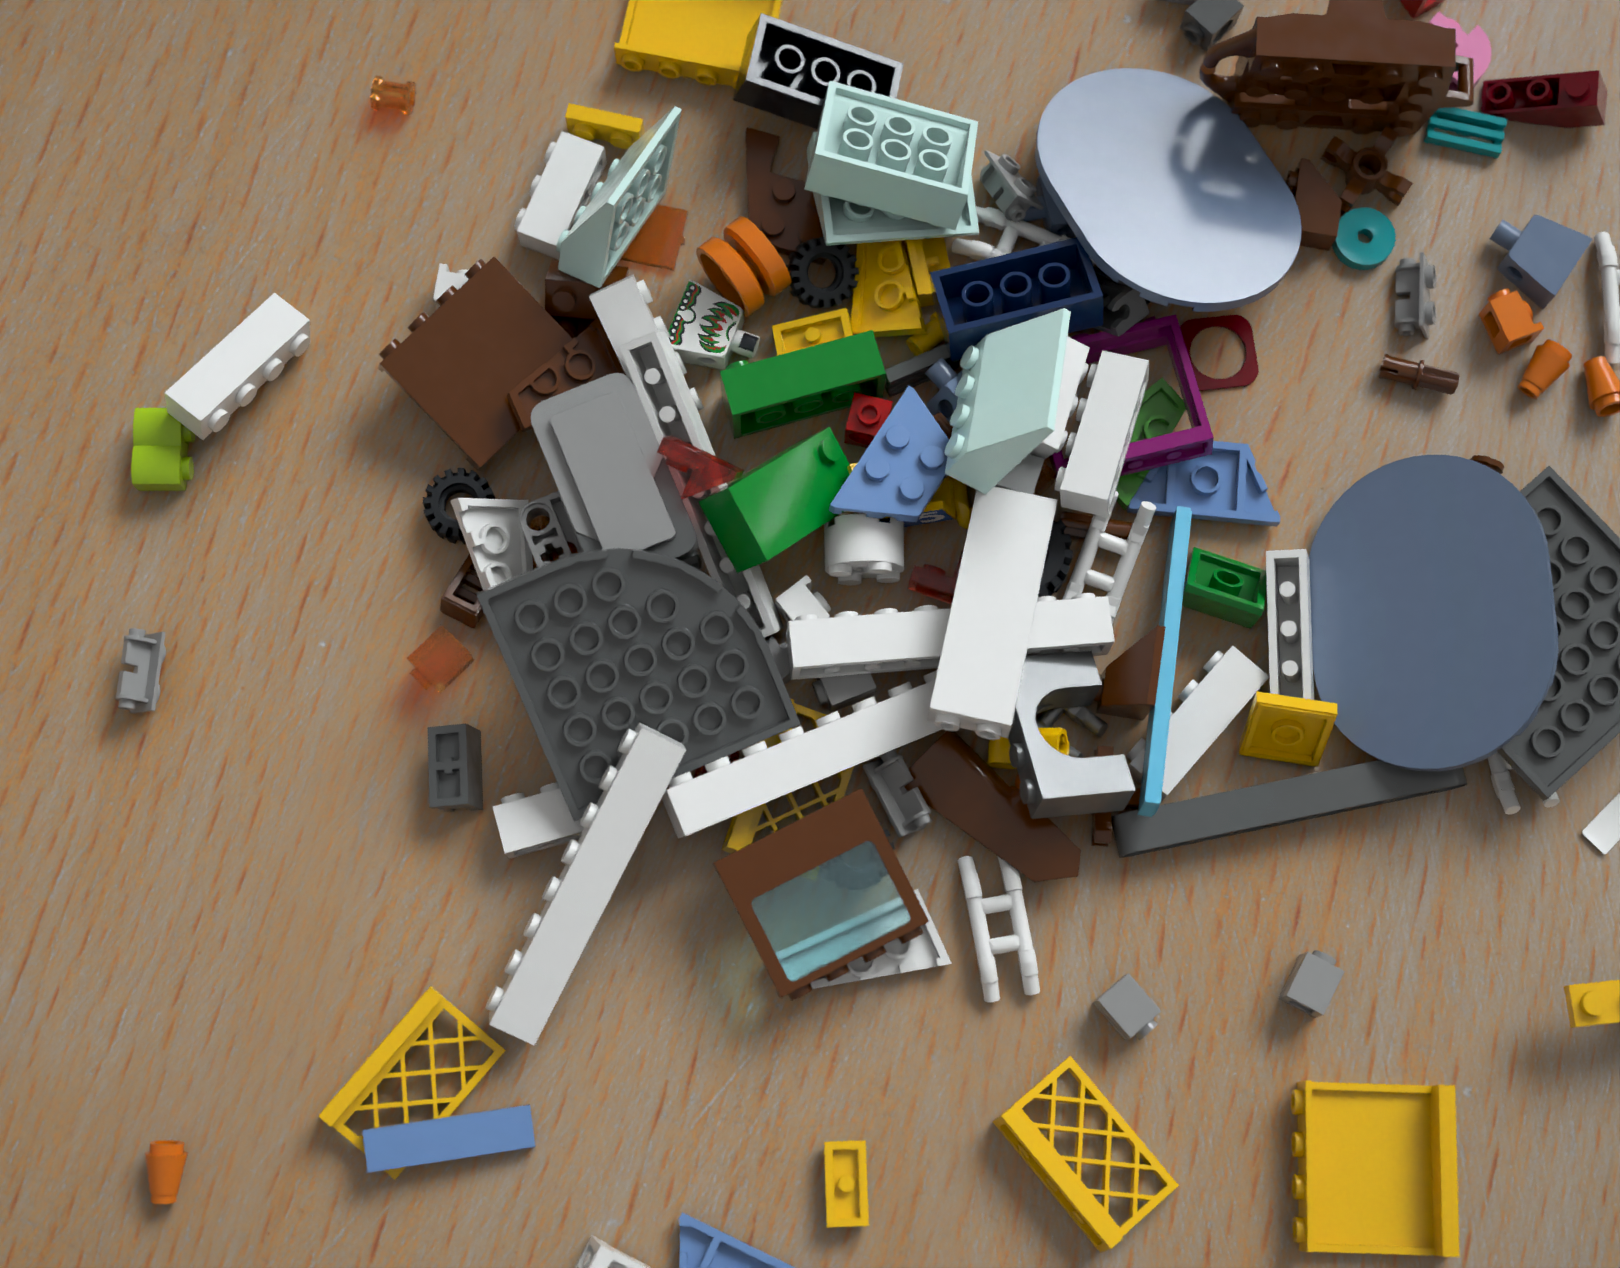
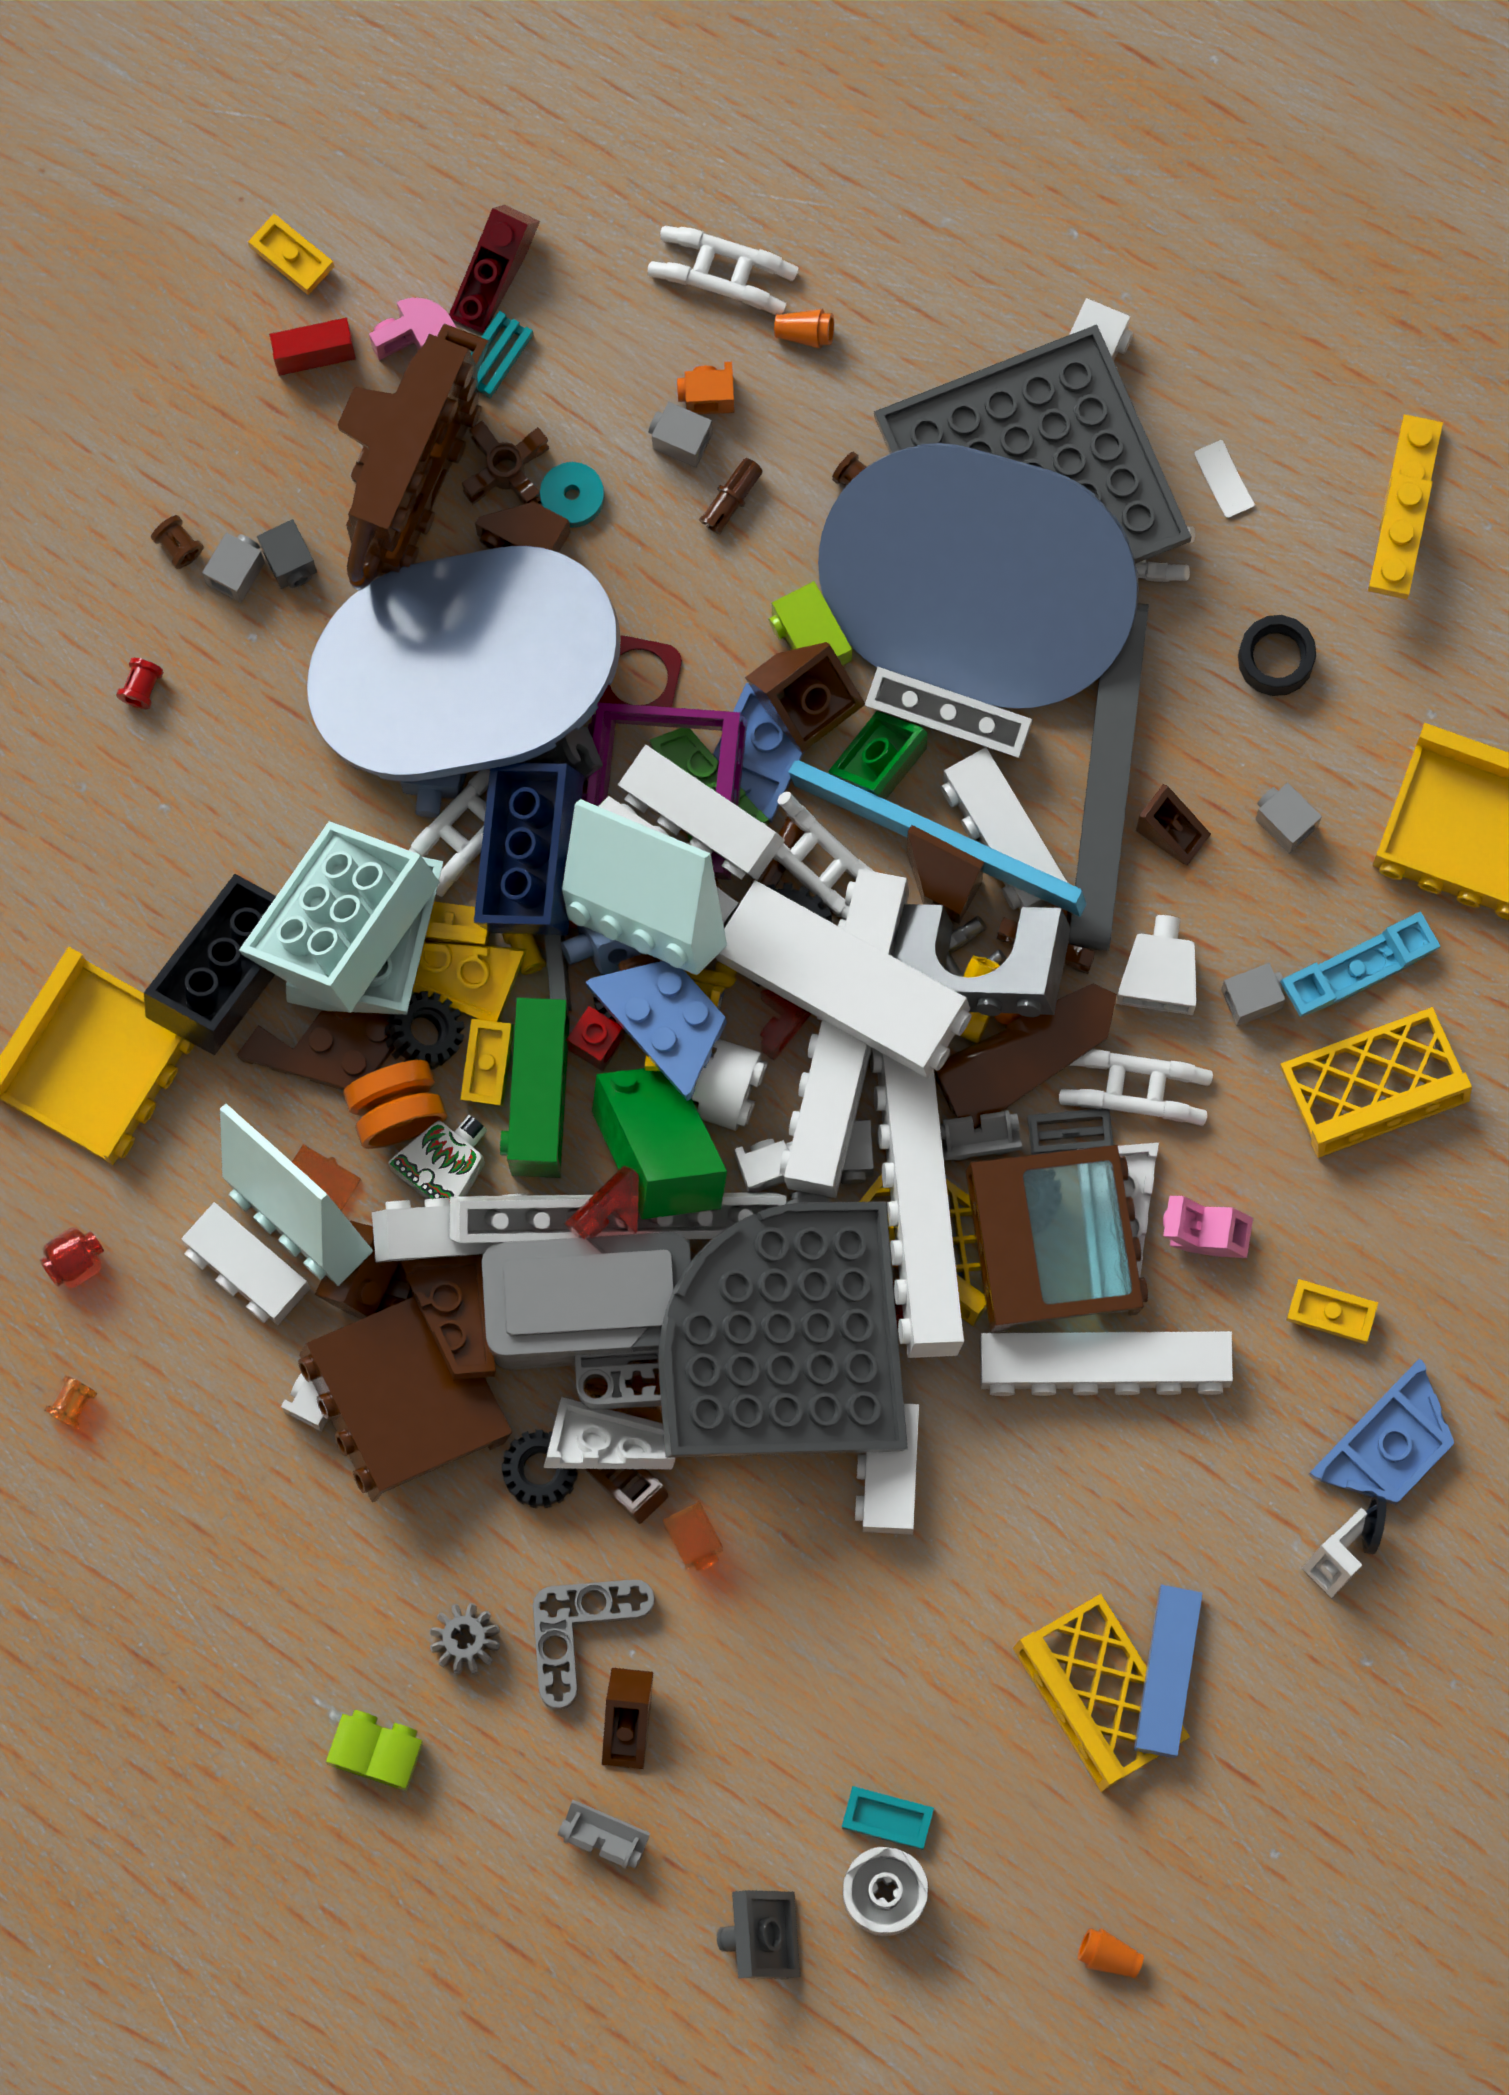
camera: 65 degrees left, 0 degrees up
(87, 843) = (763, 1935): none -> dark grey tile
(139, 949) = (891, 1867): none -> white brick
(236, 922) = (887, 1817): none -> teal tile
(238, 367) = (319, 1641): white brick -> none
(257, 655) = (627, 1718): none -> reddish brown slope
(274, 485) = (452, 1646): none -> light grey gear
(325, 575) = (563, 1627): none -> light grey beam
(455, 767) = (808, 1555): dark grey hinge -> none
(518, 52) = (72, 1257): none -> clear red head
(585, 883) = (971, 1455): white brick -> none
(603, 125) = (177, 1210): yellow plate -> none
(726, 983) = (1106, 1361): none -> white brick
(883, 1035) = (1207, 1229): none -> bright pink brick
(919, 847) = (1065, 1117): none -> dark grey tile
(1008, 187) = (384, 819): light grey hinge -> none
(1118, 910) = (1160, 971): none -> white torso
(1192, 1101) = (1360, 966): none -> medium azure slope
(1257, 496) = (805, 692): none -> reddish brown slope
(1261, 876) = (1172, 826): none -> reddish brown slope
(1287, 728) = (1042, 749): yellow tile -> none
(1318, 485) = (808, 621): none -> lime brick
(1418, 310) = (665, 471): light grey hinge -> none
(1458, 311) = (680, 433): none -> light grey brick
(1497, 920) = (1285, 626): none -> black tyre
(1539, 256) = (653, 336): sand blue torso -> none
(1544, 368) = (767, 375): orange cone -> none

